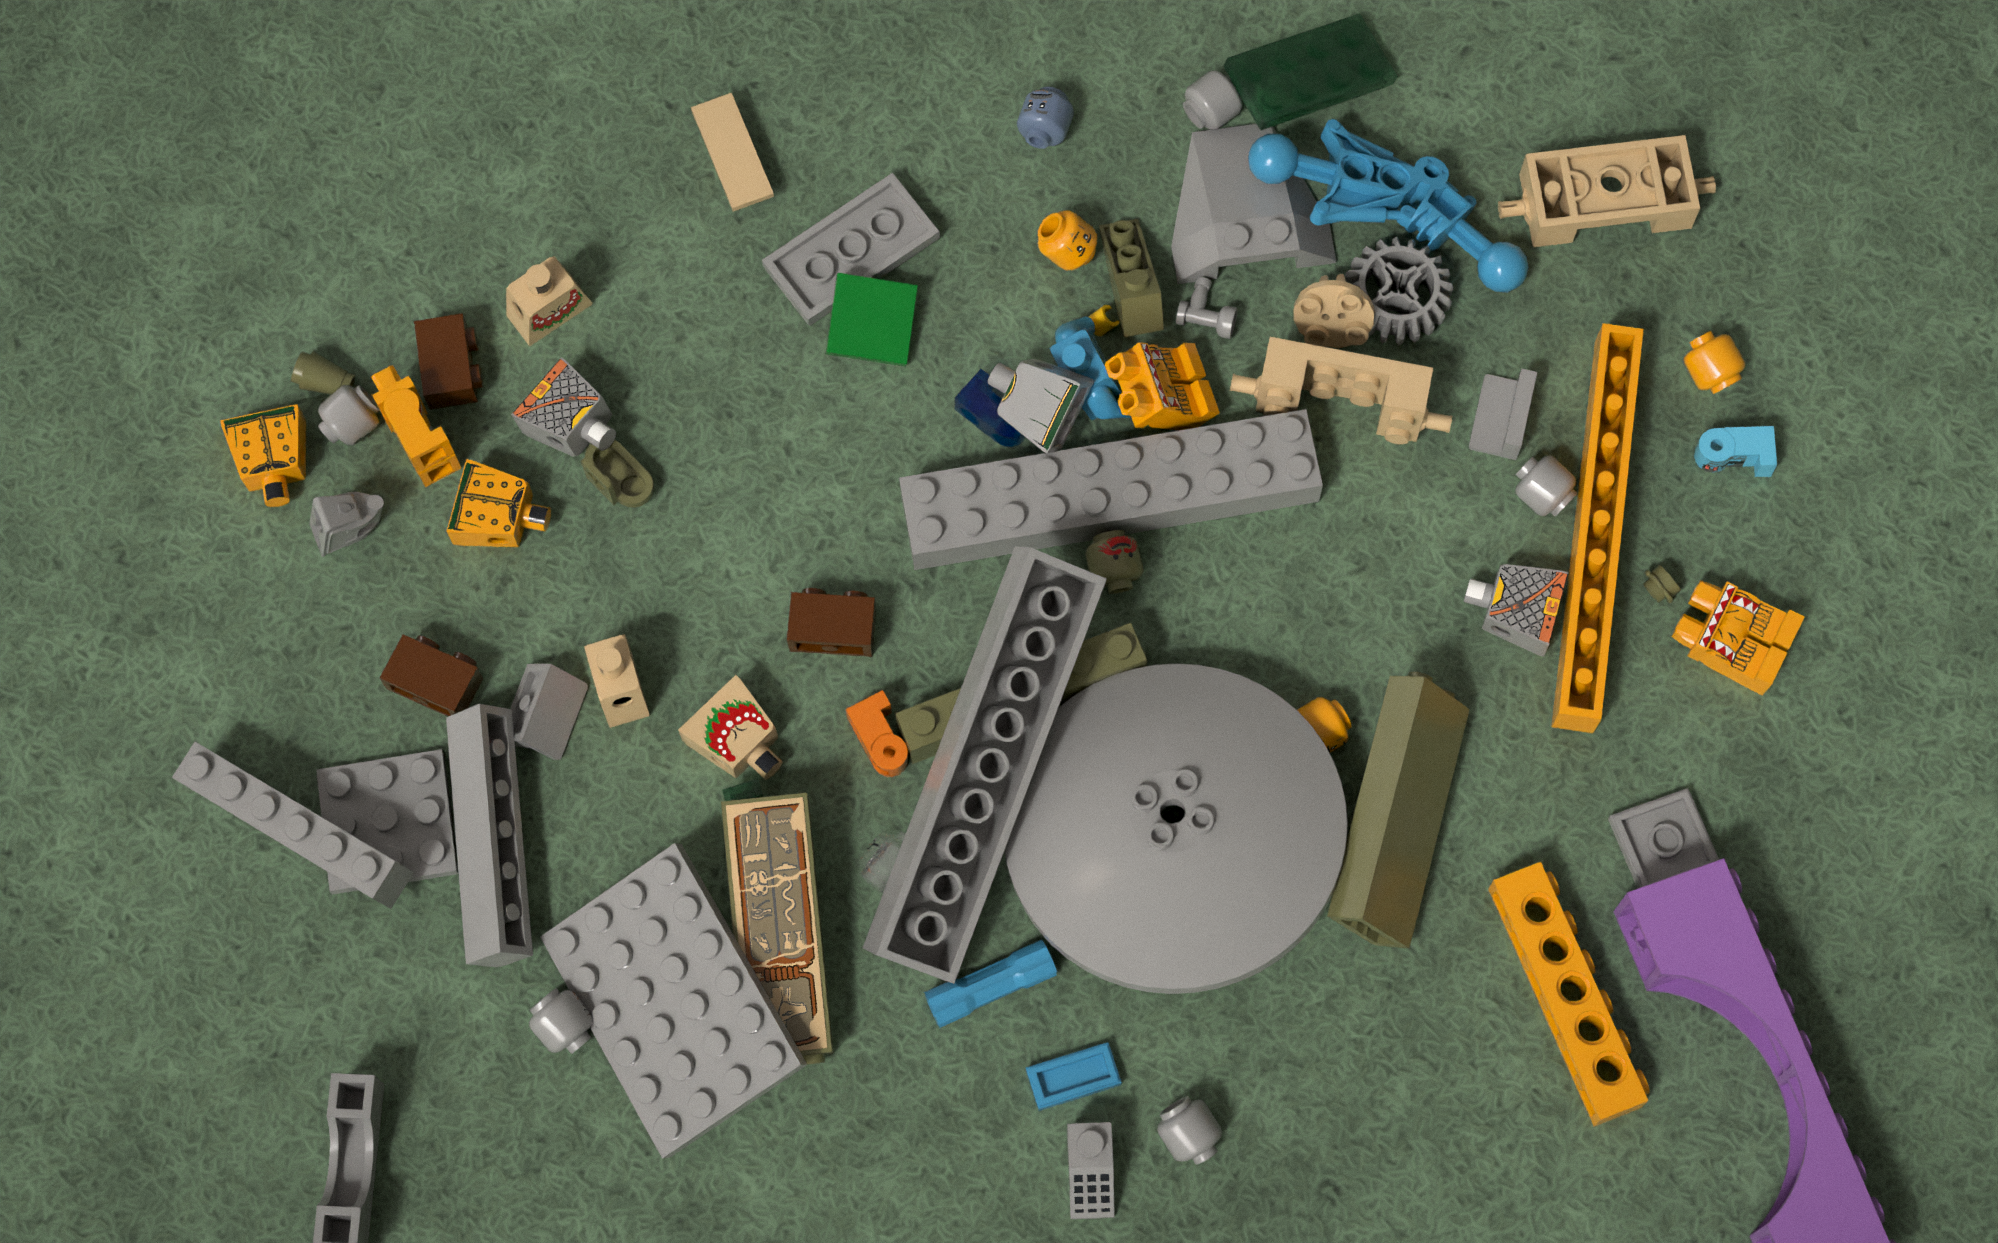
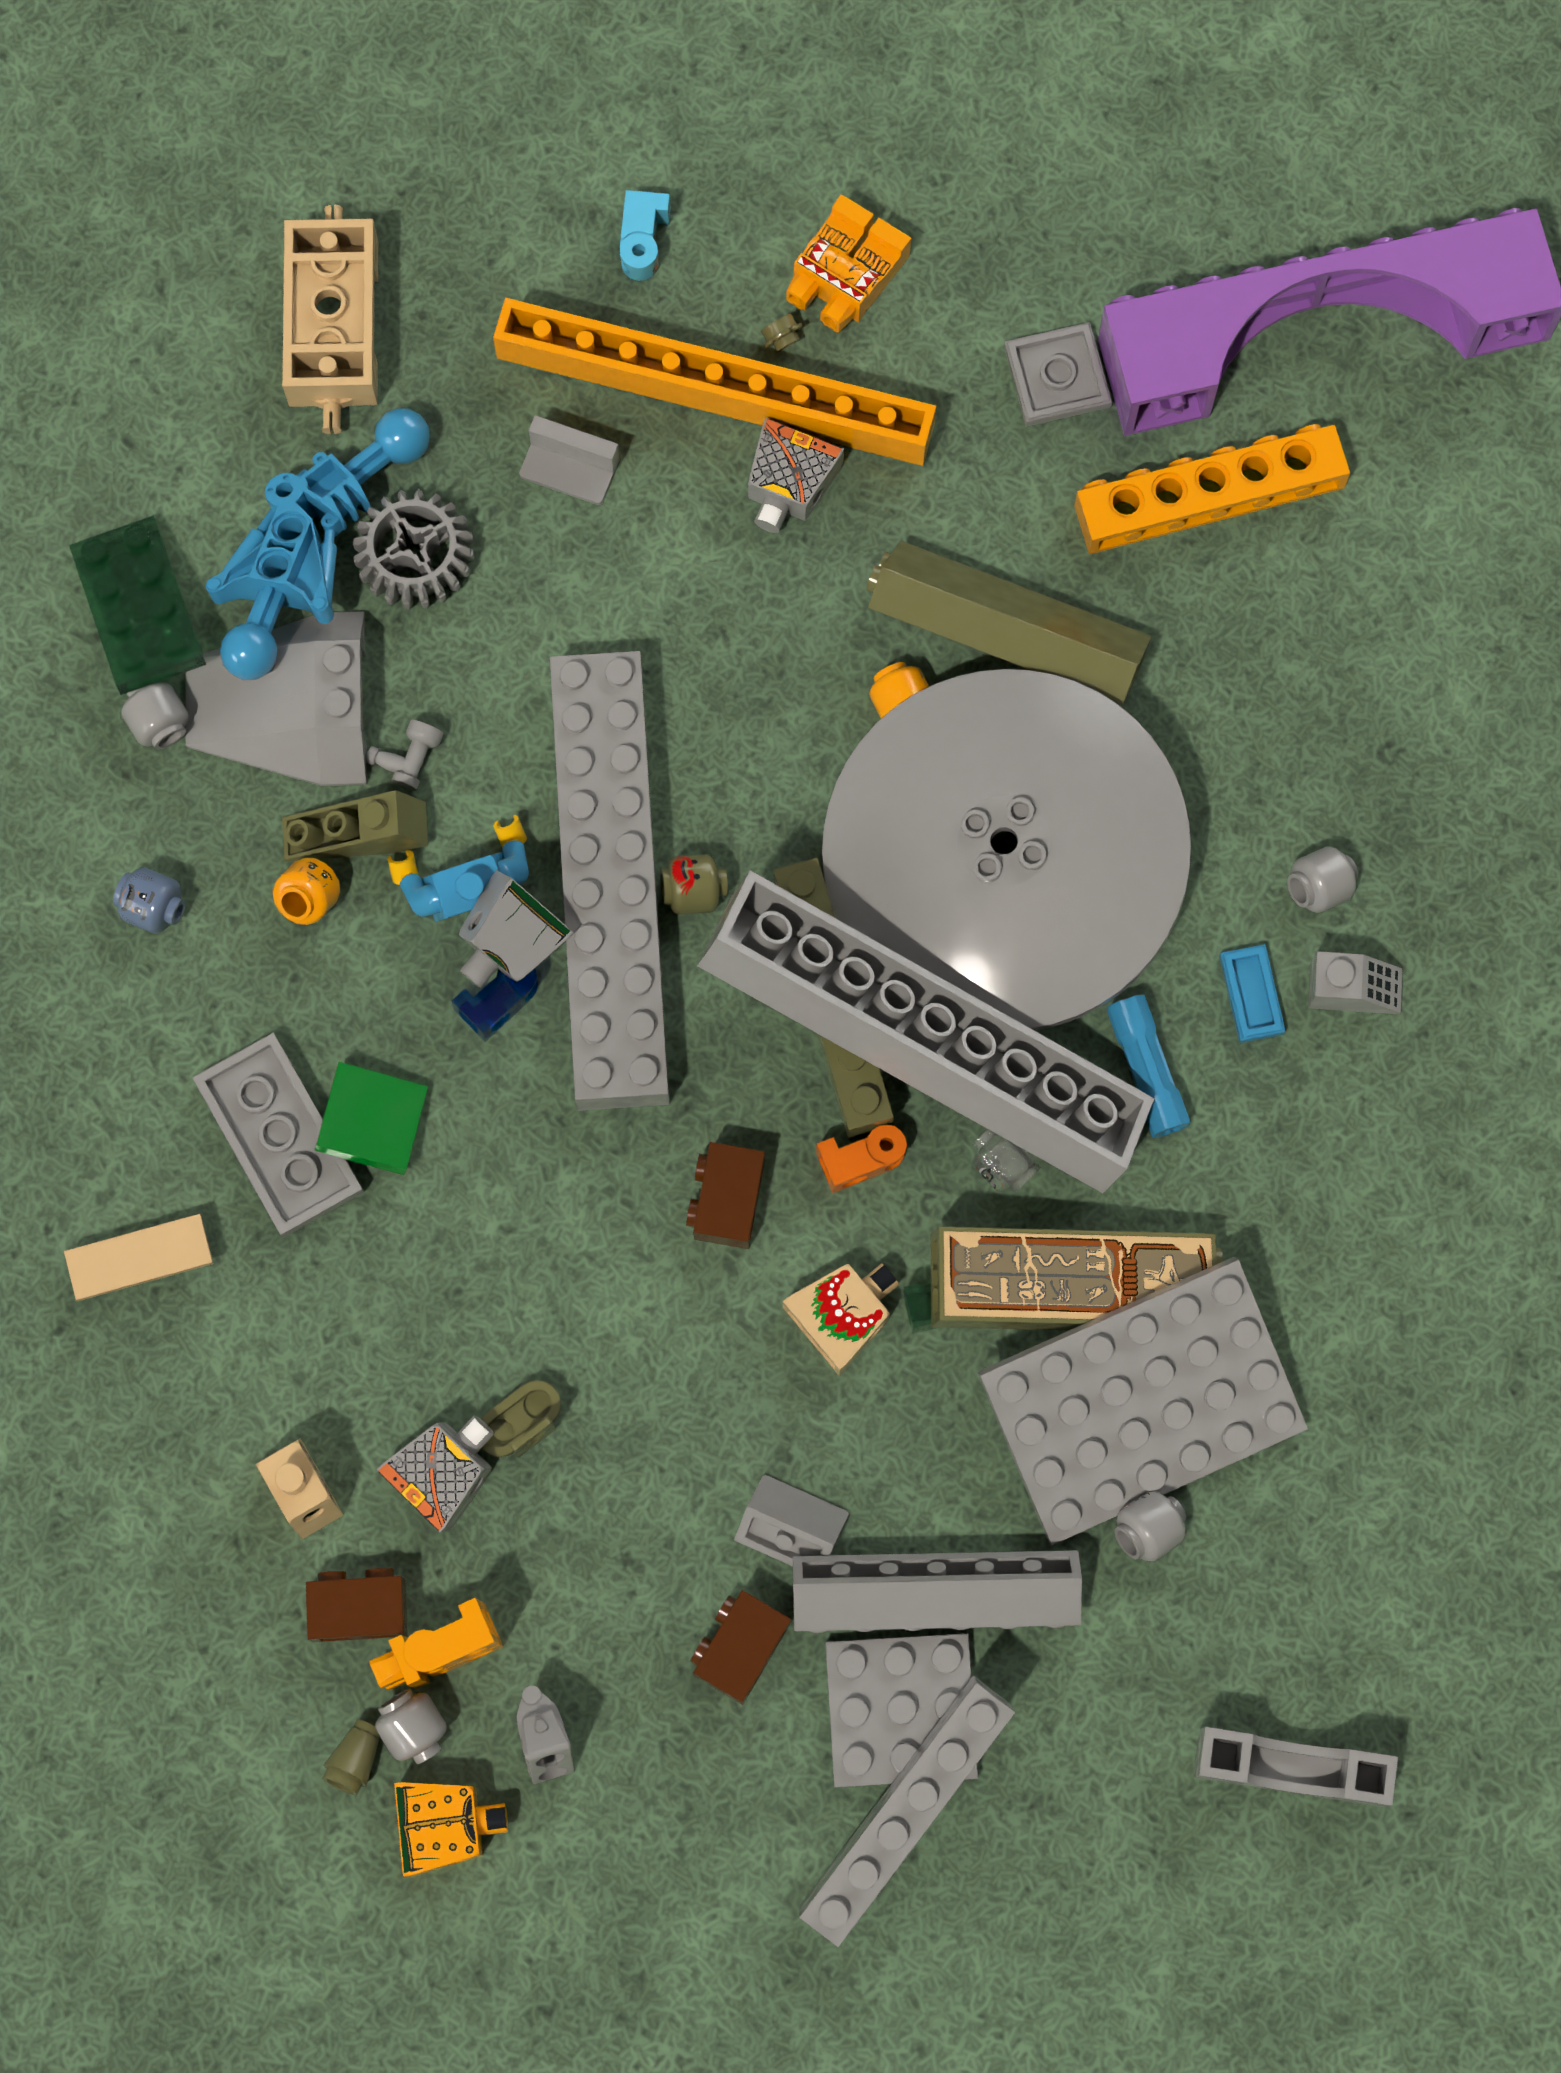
camera: 85 degrees left, 5 degrees up
(493, 508) = (546, 1563): light orange torso -> none
(615, 678) = (767, 1436): tan torso -> none
(1163, 386) = (504, 818): light orange hips -> none
(1332, 372) = (547, 558): tan brick -> none
(1347, 313) = (436, 615): tan plate -> none
(1545, 485) = (660, 429): light grey head -> none
(1714, 362) = (541, 239): light orange head -> none

